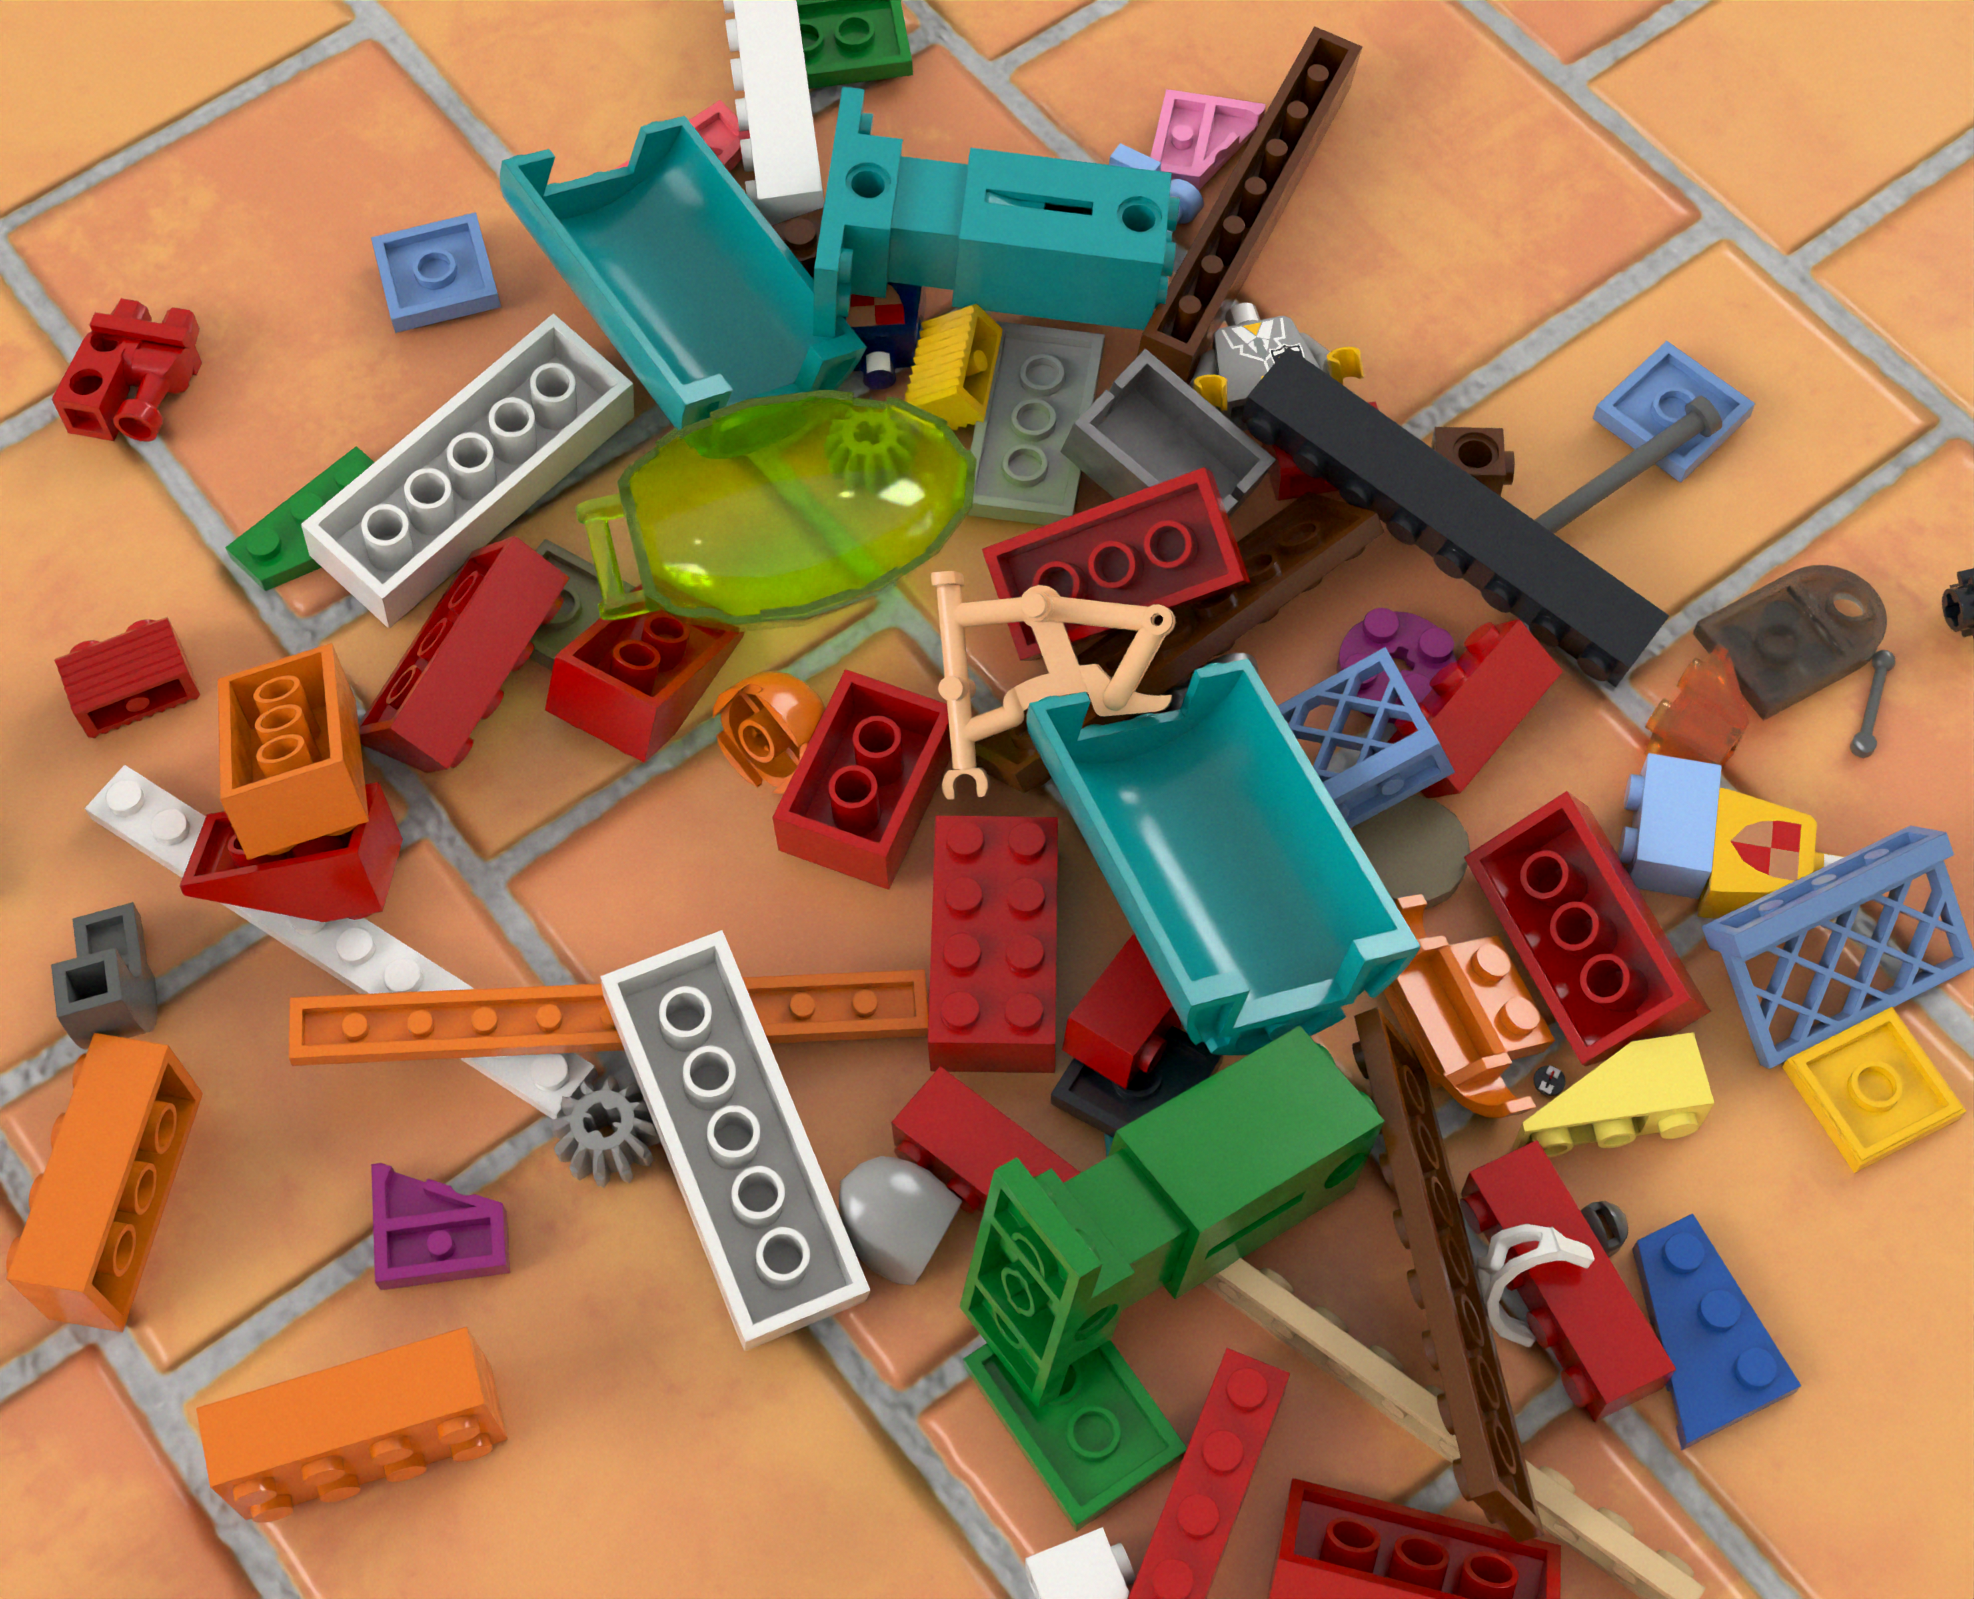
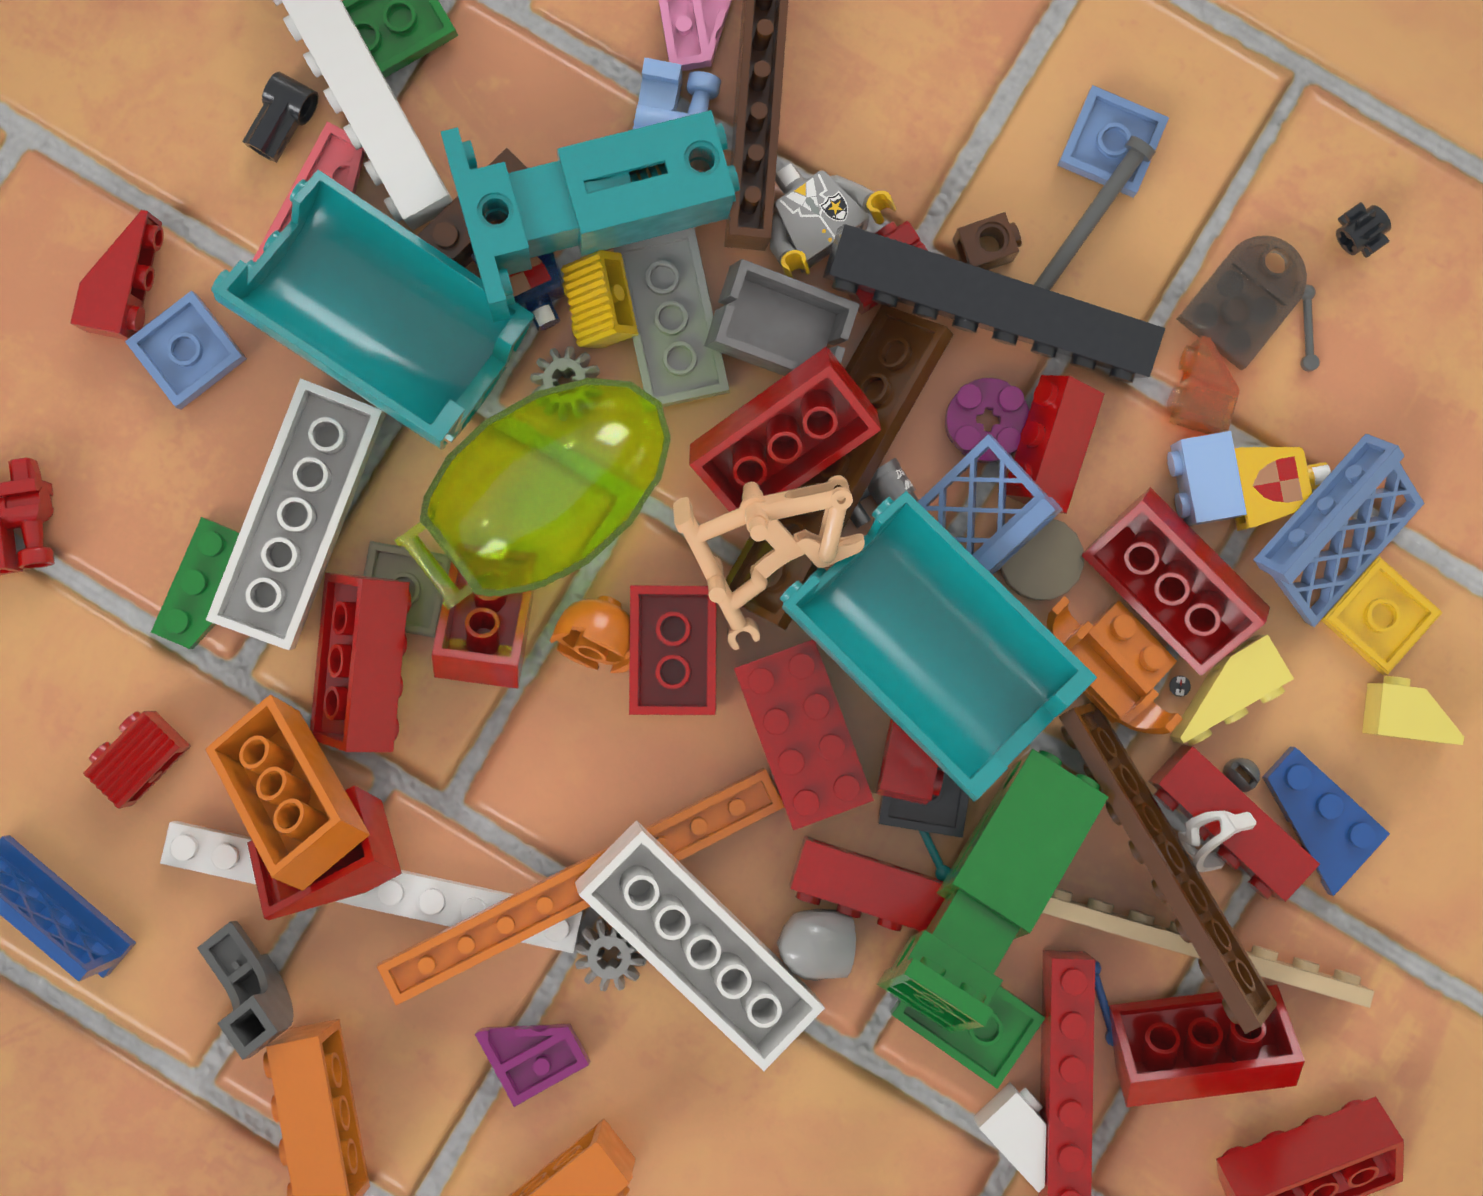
camera: 20 degrees left, 25 degrees up
(397, 180) = (115, 288): none -> red slope
(679, 76) = (283, 109): none -> black piece
(1286, 1421) = (1103, 1003): none -> blue hinge
(1877, 1228) = (1407, 713): none -> light yellow slope

